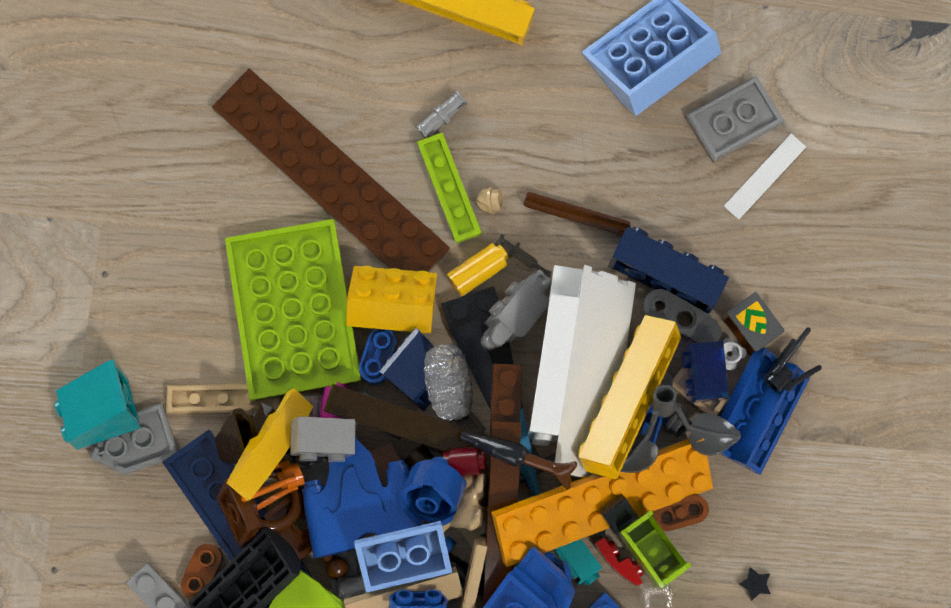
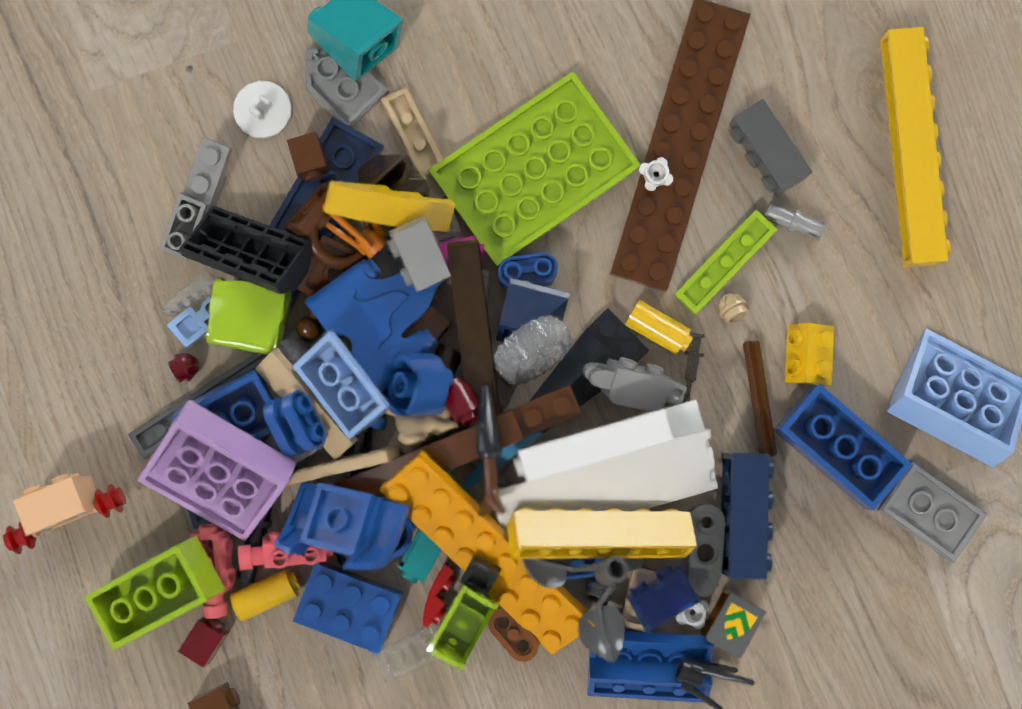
camera: 65 degrees right, 5 degrees up
(123, 521) = (262, 109): none -> white piece
(189, 497) = (308, 157): none -> reddish brown brick
(199, 570) = (248, 202): dark orange plate -> none
(347, 202) = (659, 166): none -> white plate
(370, 107) = (769, 148): none -> dark grey brick
(391, 299) = (588, 257): yellow brick -> none
(558, 155) = (809, 354): none -> yellow bracket
(648, 165) = (842, 447): none -> blue brick
(765, 176) = (888, 568): white sticker -> none

